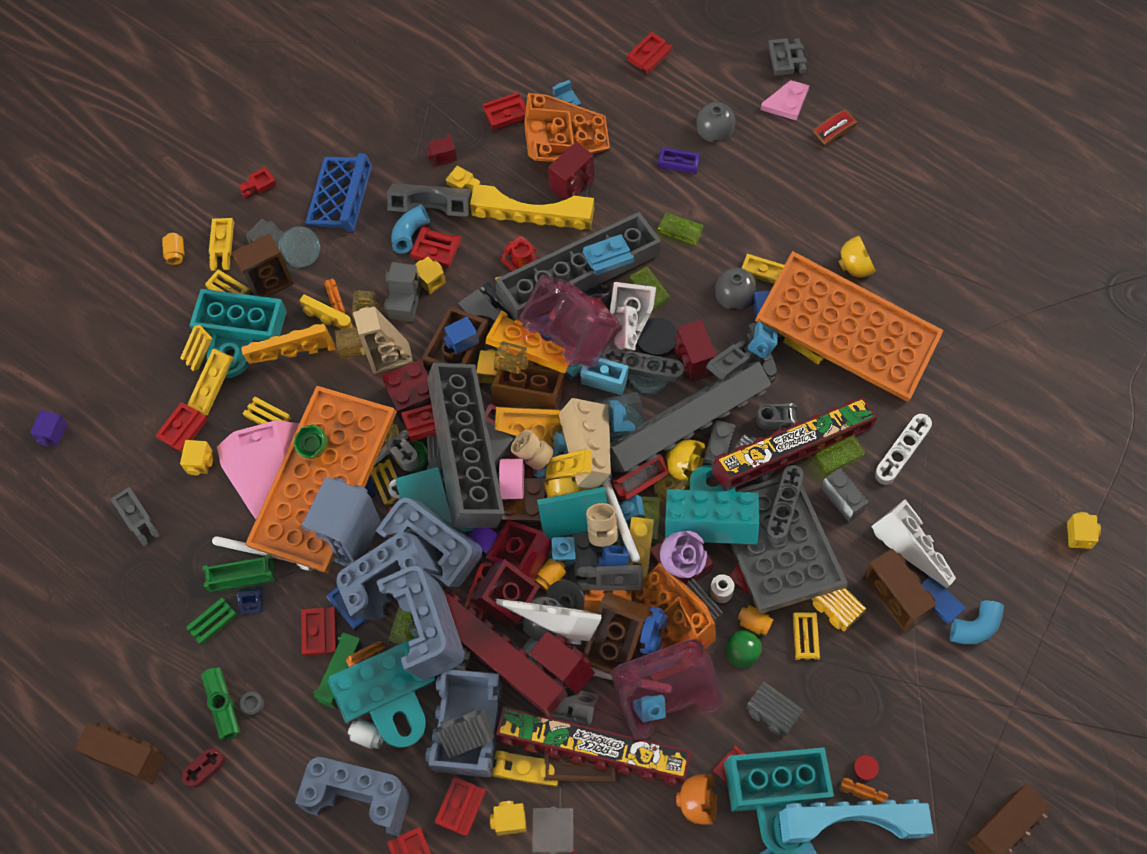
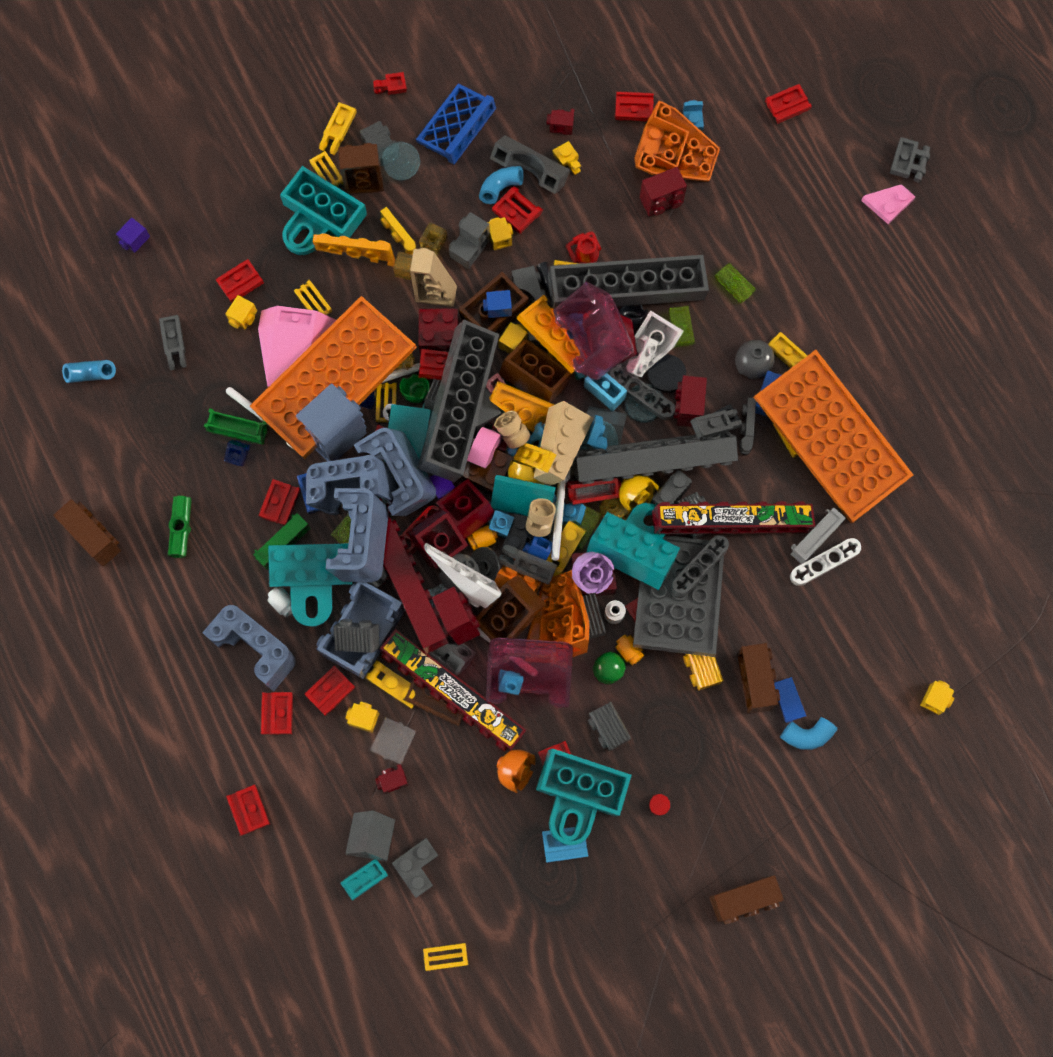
camera: 20 degrees right, 10 degrees up
(54, 583) = (88, 371): none -> dark azure cylinder
(173, 248) = (295, 116): light orange brick -> none
(193, 345) = (277, 214): yellow tile -> none
(206, 615) = (197, 449): green tile -> none
(206, 772) = (148, 575): dark red beam -> none
(210, 381) = (278, 251): yellow tile -> none
(251, 703) = (204, 537): dark grey tile -> none
(310, 441) = (335, 343): green hair -> none
(334, 295) = (412, 217): orange axle -> none
(365, 653) = (307, 538): orange axle -> none
(399, 455) = (403, 385): dark grey beam -> none
(511, 357) = (531, 341): clear yellow brick -> none
(572, 212) = (647, 228): yellow arch -> none
(608, 254) = (656, 284): dark azure plate -> none
(652, 631) = (539, 622): blue plate -> none
(678, 162) = (770, 230): dark purple tile -> none
(715, 121) = (814, 196): dark grey cylinder -> none
(764, 340) = (752, 417): dark azure bracket -> none
(781, 416) = (734, 488): dark grey piece -> none
(806, 655) = (658, 696): yellow tile -> none
(834, 127) = (918, 246): slope -> none
(840, 454) = (769, 543): clear neon green plate -> none
(844, 495) = (754, 579): dark grey brick -> none
(856, 259) = (872, 378): yellow cylinder -> none
(862, 791) = (648, 822): orange axle -> none
(883, 426) = (817, 536): none -> light grey container
(902, 532) = (787, 635): white wedge -> none
(903, 820) = (666, 857): medium azure arch -> none

